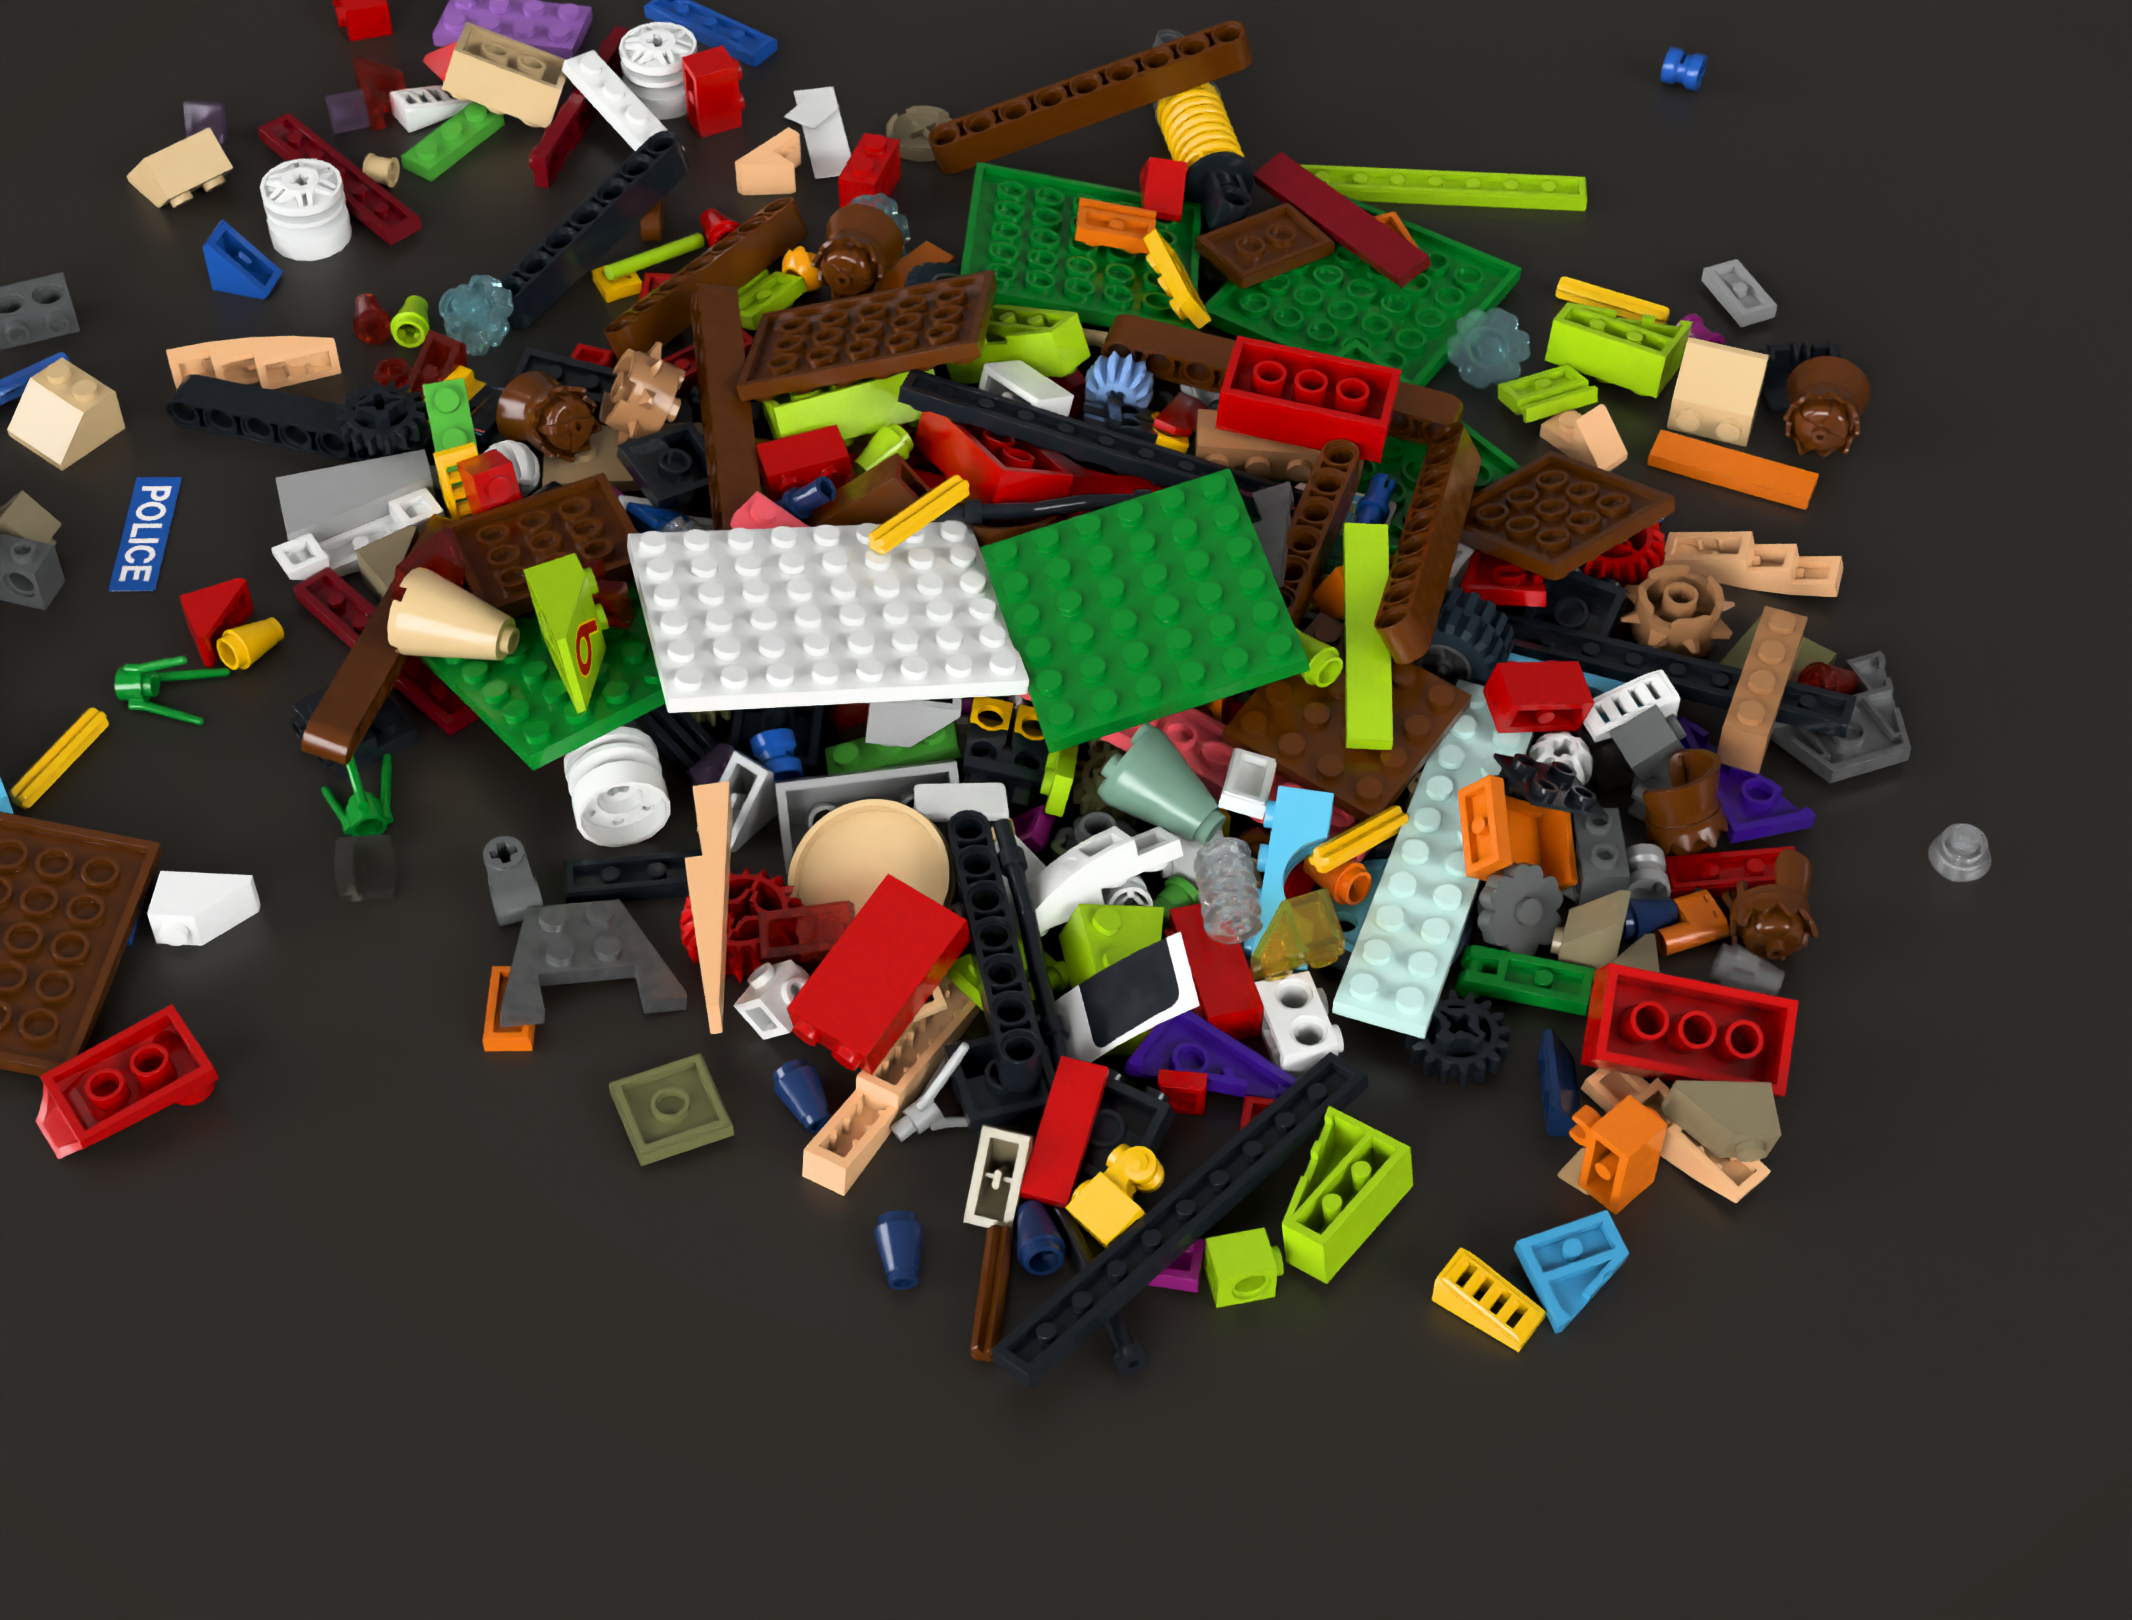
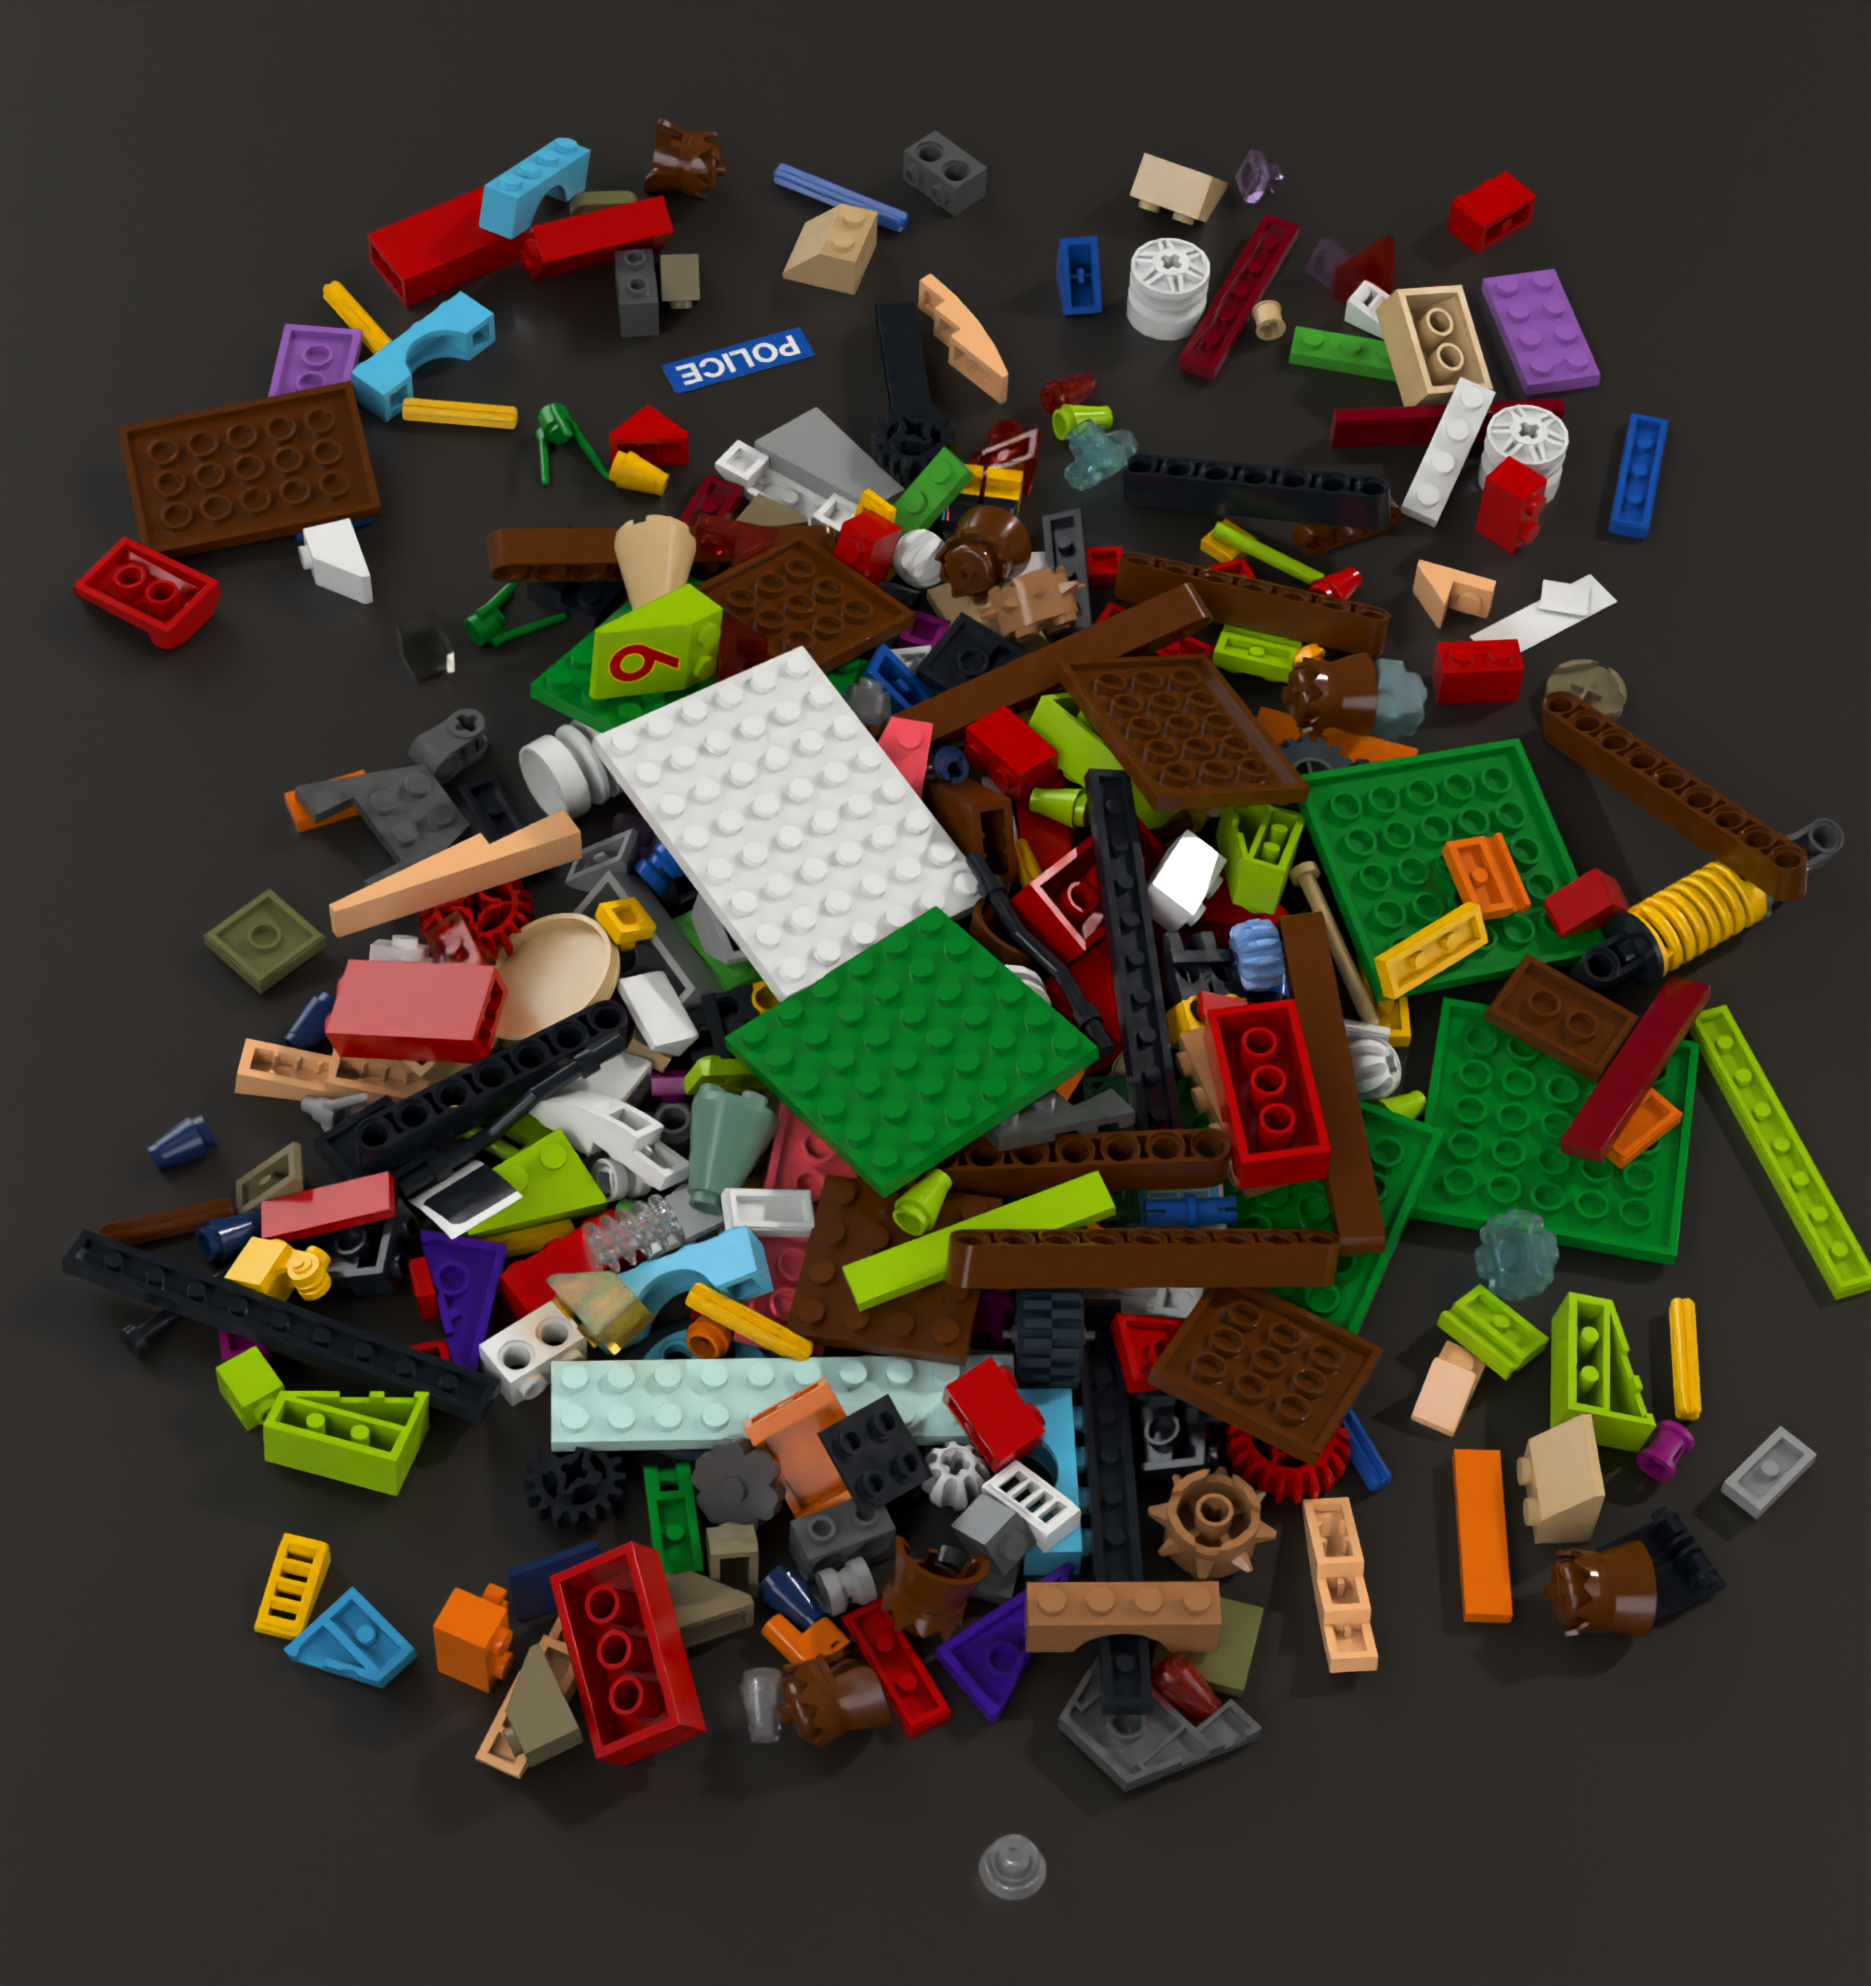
camera: 65 degrees right, 5 degrees up
(854, 783) = (625, 922): none -> yellow tile
(918, 514) = (946, 844): yellow axle -> none

